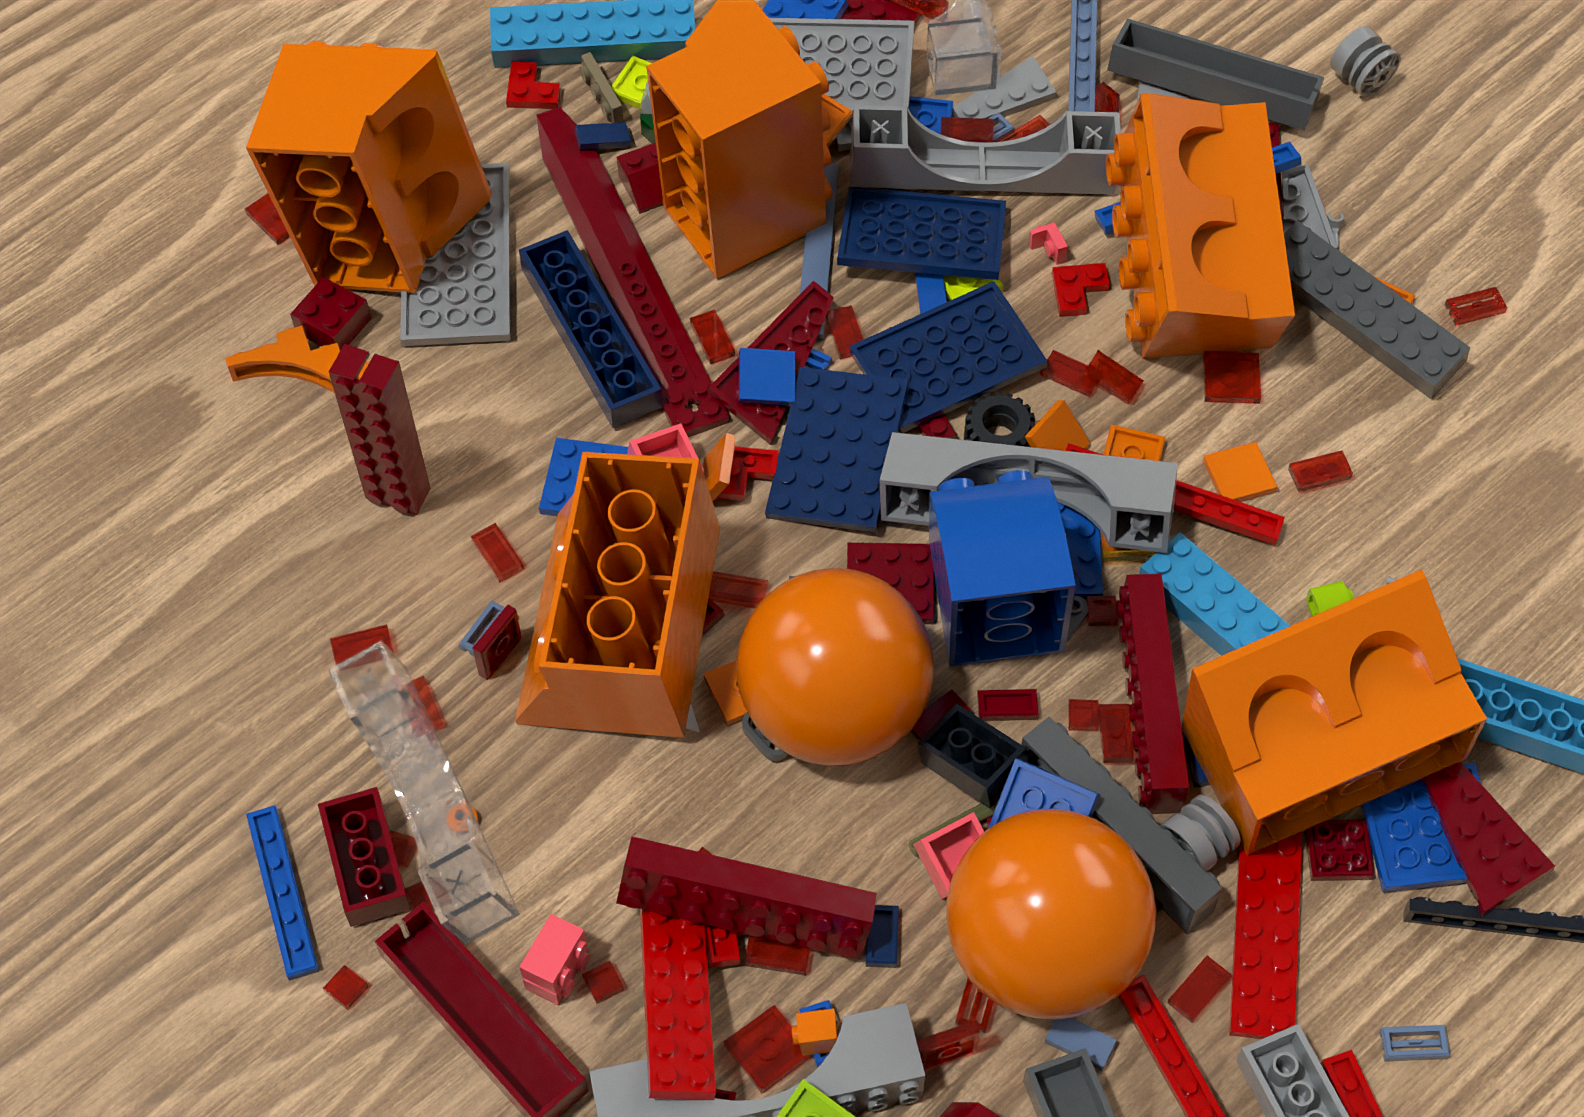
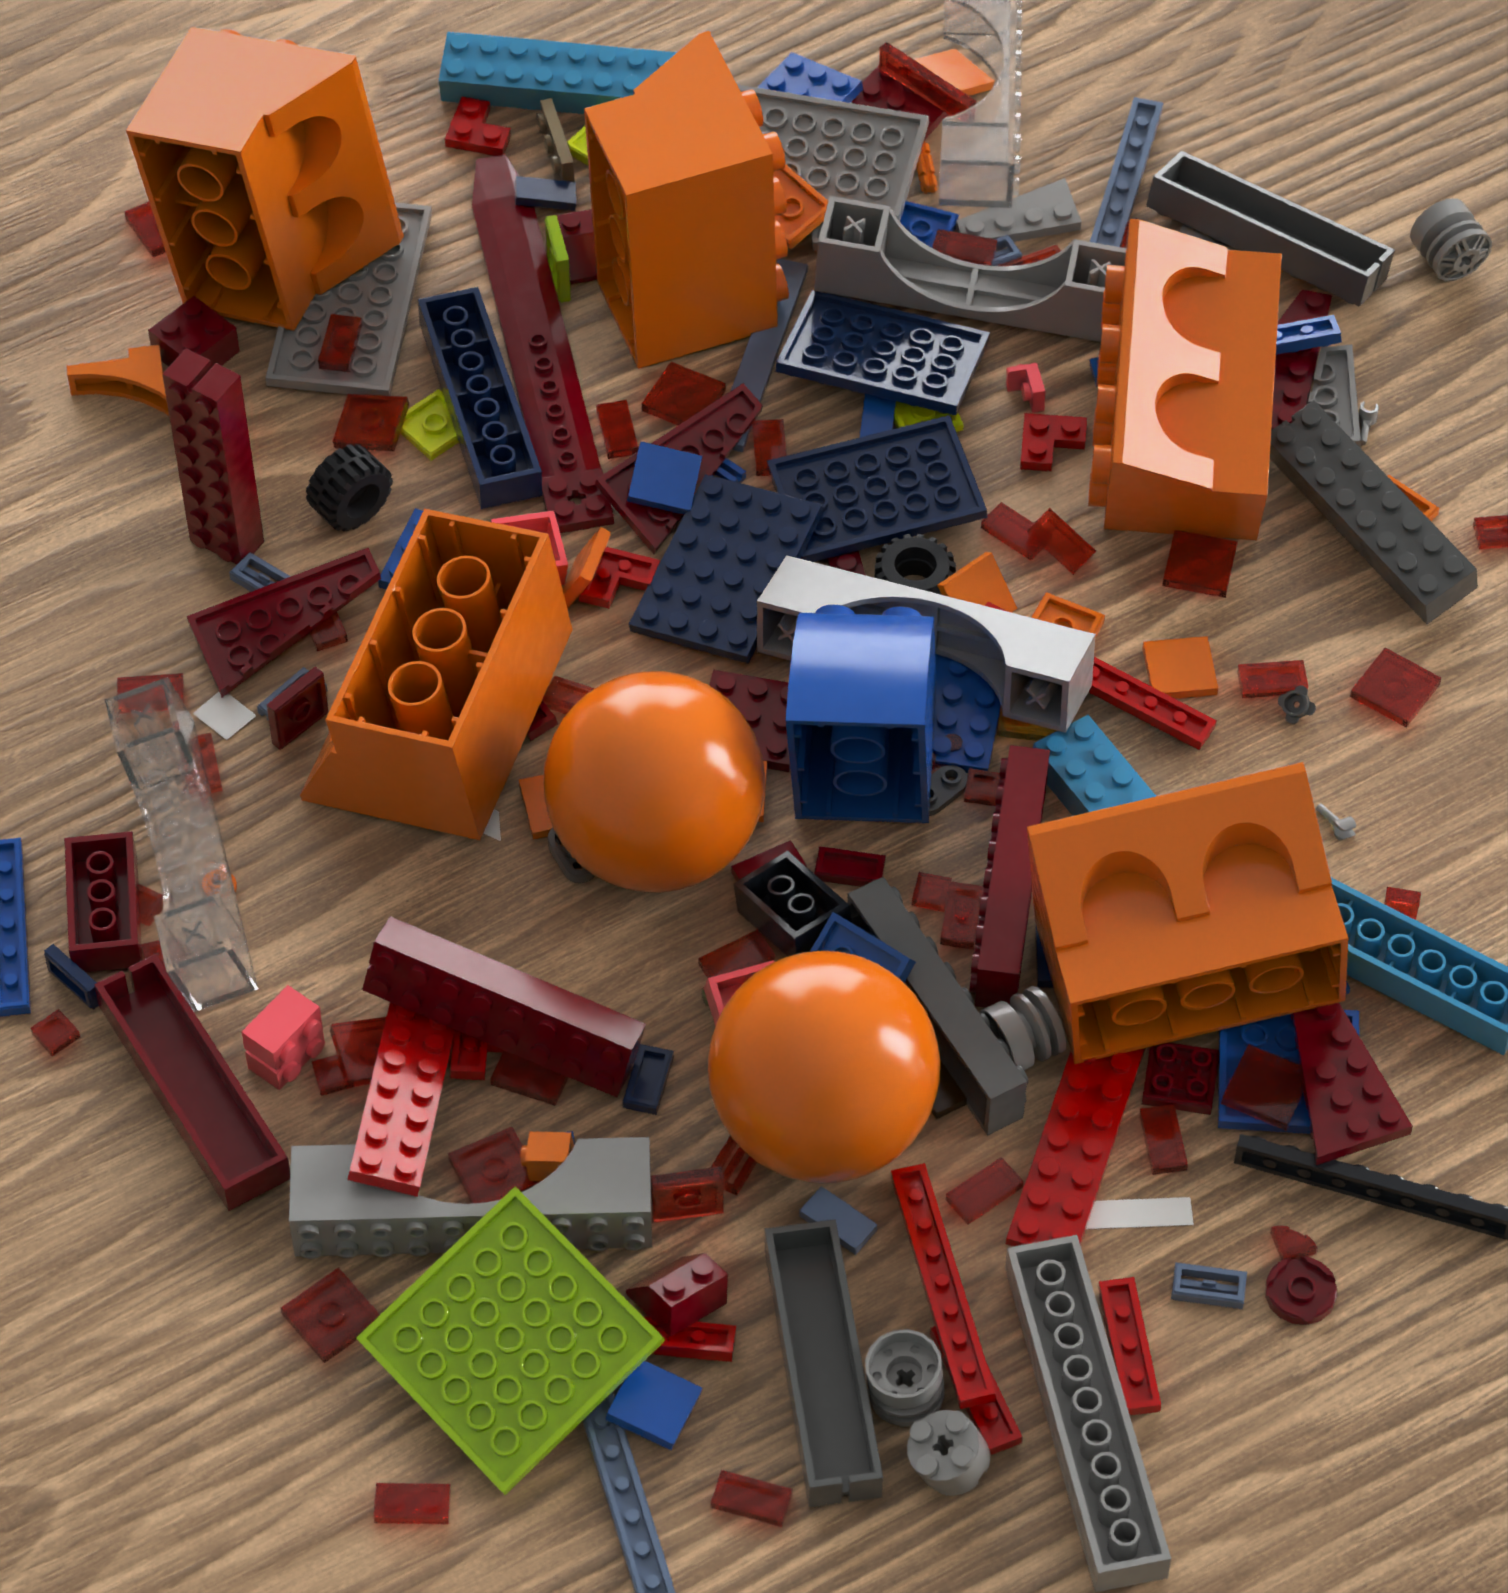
camera: 10 degrees right, 5 degrees down
(350, 931) = (71, 976): none -> dark blue tile
(431, 655) = (224, 715): none -> white sticker
(447, 567) = (262, 624): none -> dark red wing
(459, 299) = (340, 343): none -> clear red plate
(460, 534) = (251, 579): none -> sand blue tile
(497, 430) = (349, 487): none -> black tyre
(500, 365) = (371, 421): none -> clear red tile
(549, 359) = (430, 426): none -> neon yellow tile
(622, 955) = (357, 1048): none -> clear red tile
(628, 193) = (557, 258): none -> lime tile
(761, 297) = (681, 394): none -> clear red tile
(918, 72) = (926, 170): none -> orange axle
(931, 808) = (736, 955): none -> clear red tile
(1338, 490) = (1287, 702): none -> dark grey plate
(1338, 983) = (1141, 1213): none -> white sticker
(1339, 911) = (1163, 1139): none -> clear red tile
(1417, 850) = (1265, 1087): none -> clear red tile
(1422, 460) = (1395, 687): none -> clear red tile
(1474, 989) = (1292, 1243): none -> clear red tile
(1484, 655) = (1403, 901): none -> clear red tile
(1493, 1032) = (1301, 1290): none -> dark red tile

